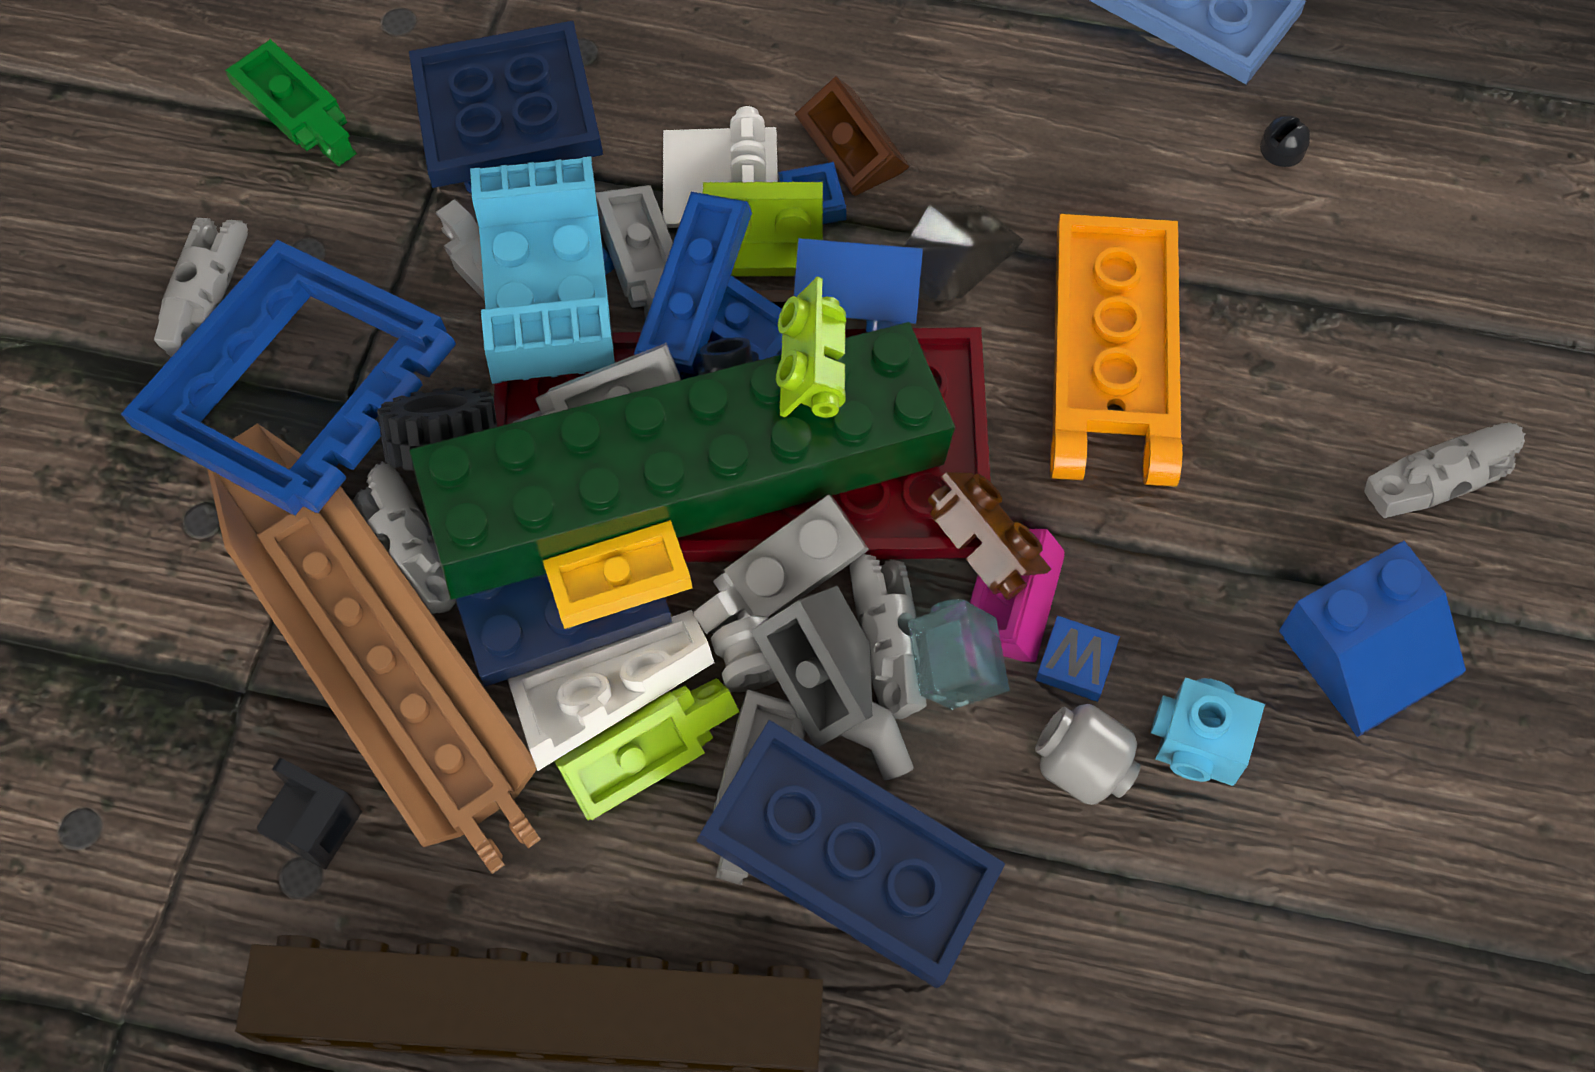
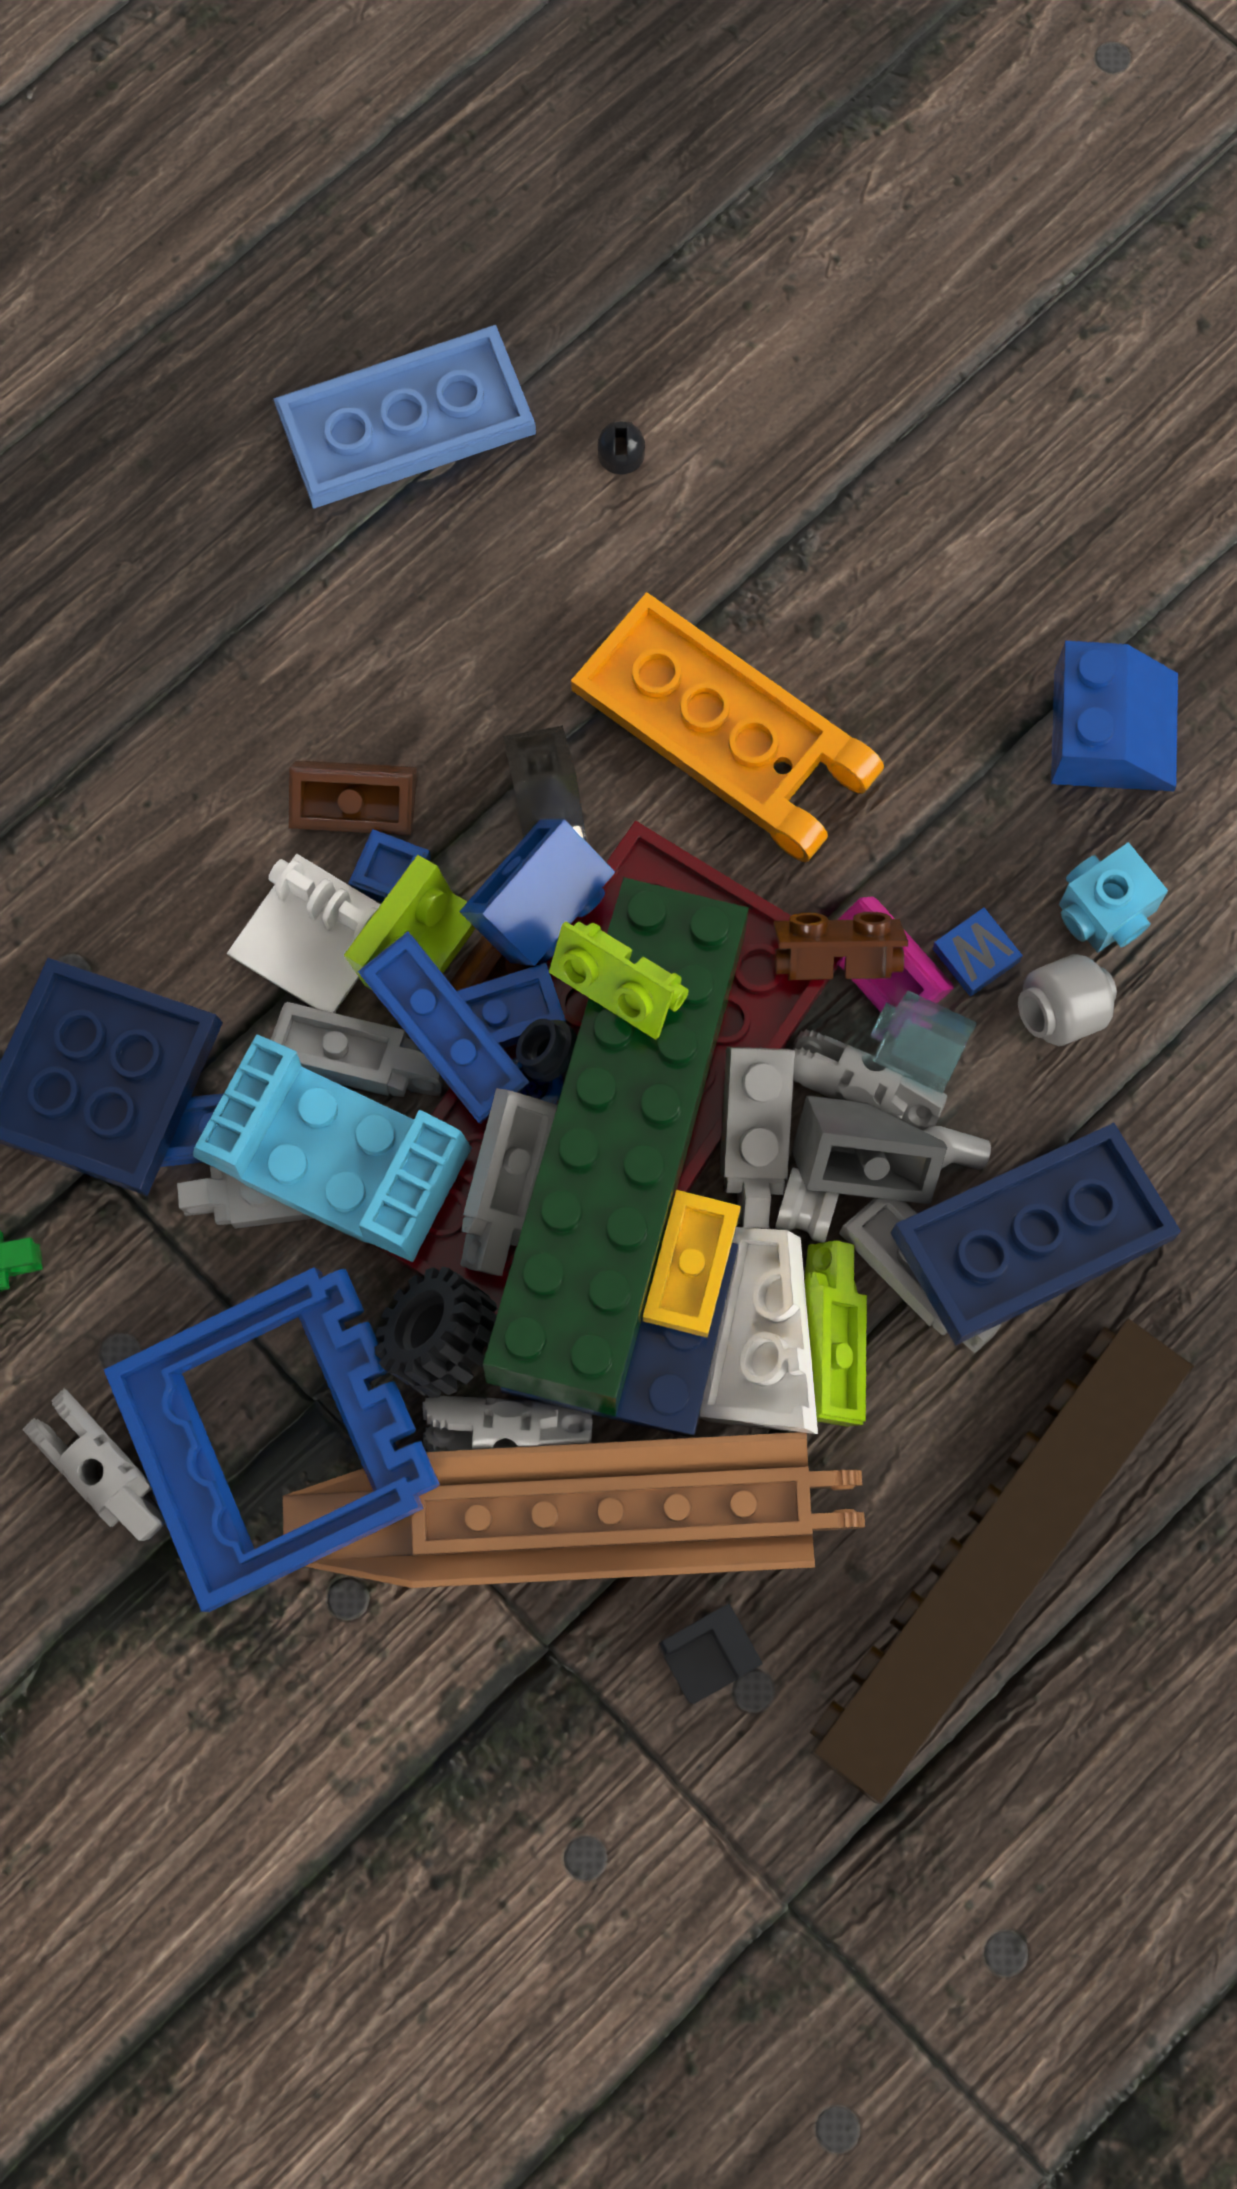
camera: 55 degrees left, 10 degrees up
(1445, 470) = (1012, 561): light grey hinge -> none

